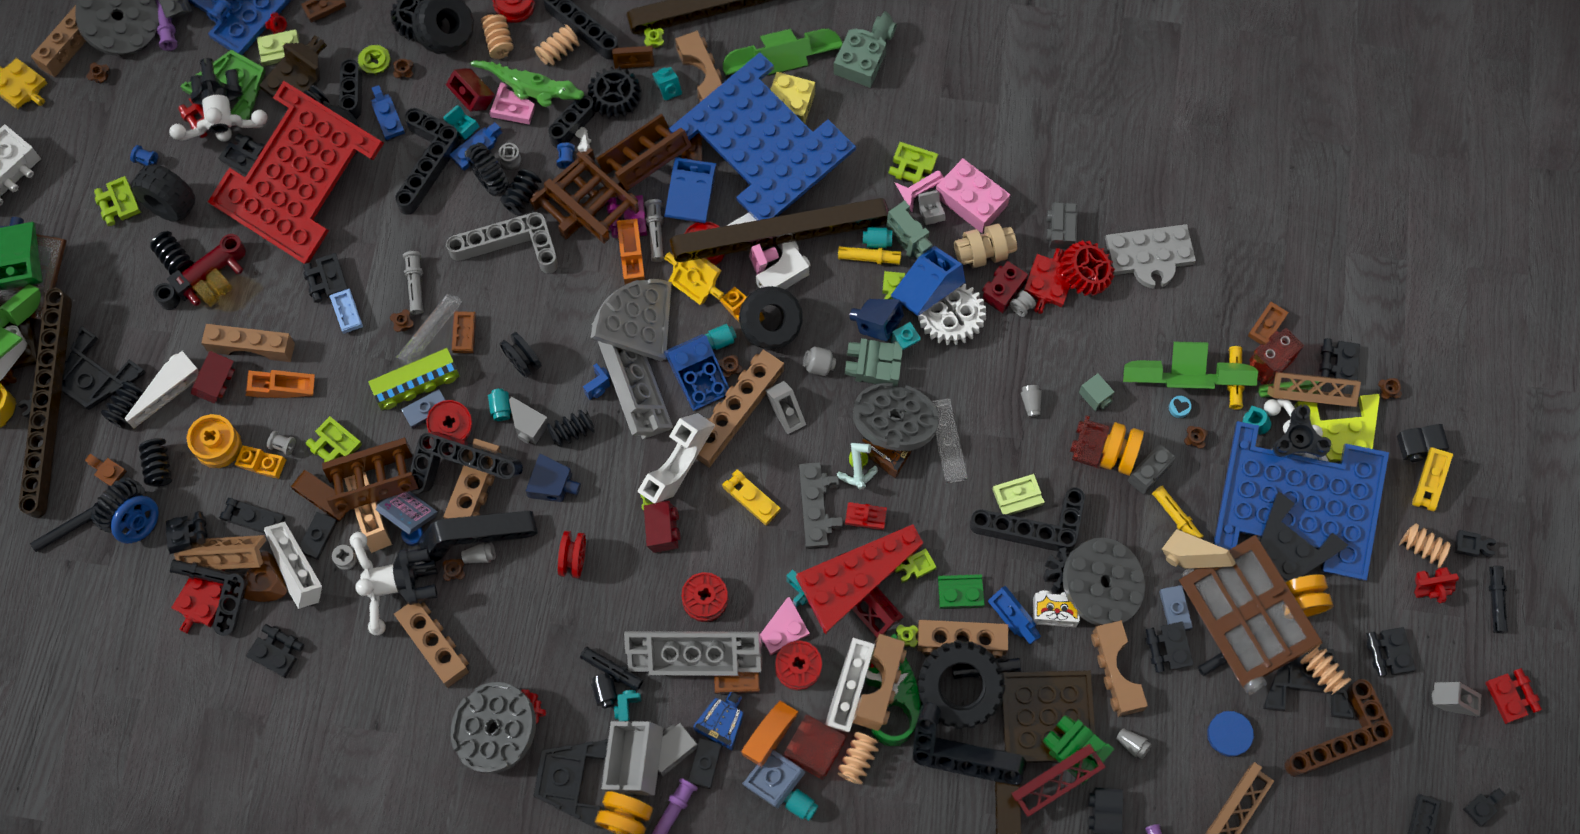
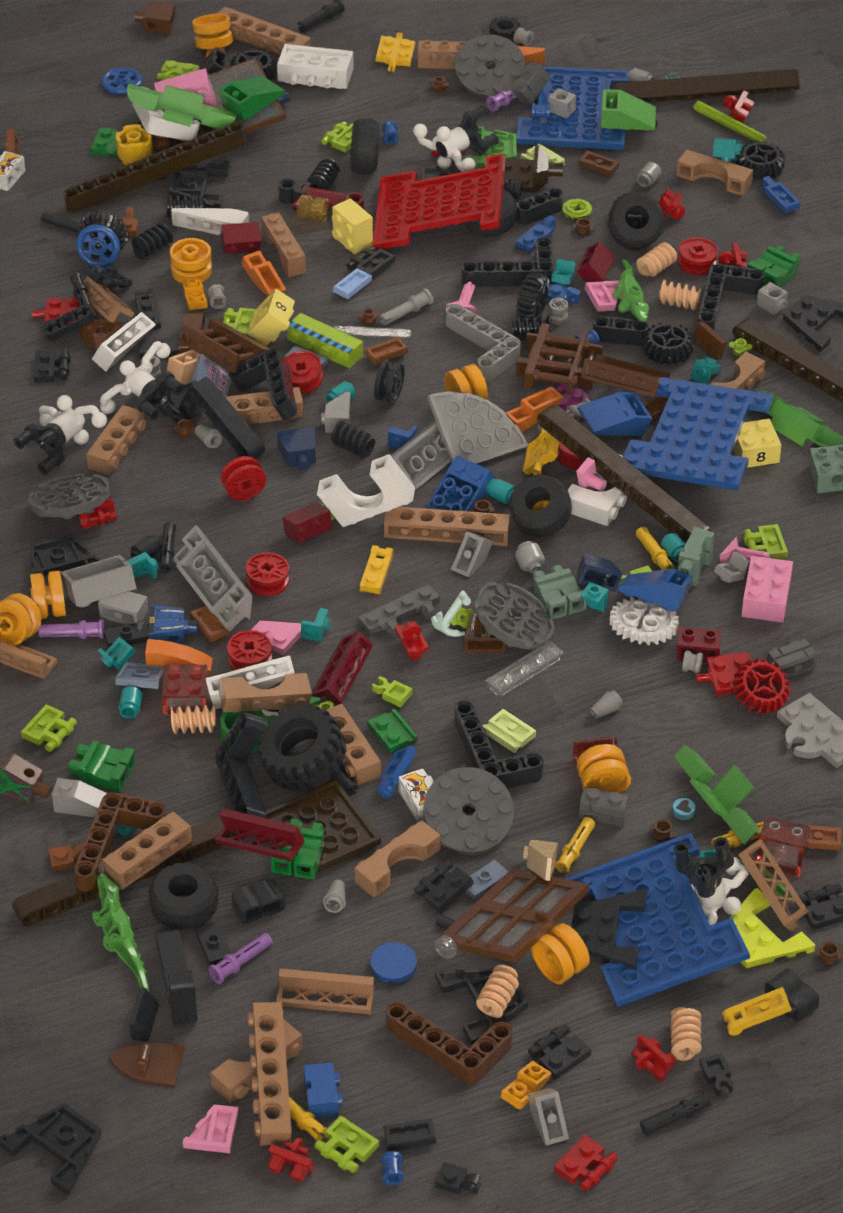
camera: 60 degrees right, 25 degrees down
(272, 268) = (352, 226): none -> light yellow brick
(281, 23) = (563, 143): red plate -> none
(359, 412) = (271, 317): none -> light yellow brick
(398, 694) = (58, 429): none -> wheel
(437, 226) = (465, 297): none -> bright pink piece
(573, 293) = (466, 380): none -> light orange wheel
(584, 144) = (611, 346): white piece -> none
(730, 786) = (117, 654): none -> teal bracket
(848, 579) = (350, 645): red wing -> none
(993, 244) = (720, 609): tan piece -> none
(1097, 392) = (648, 743): sand green brick -> none
(1412, 698) = (528, 1080): none -> light orange slope

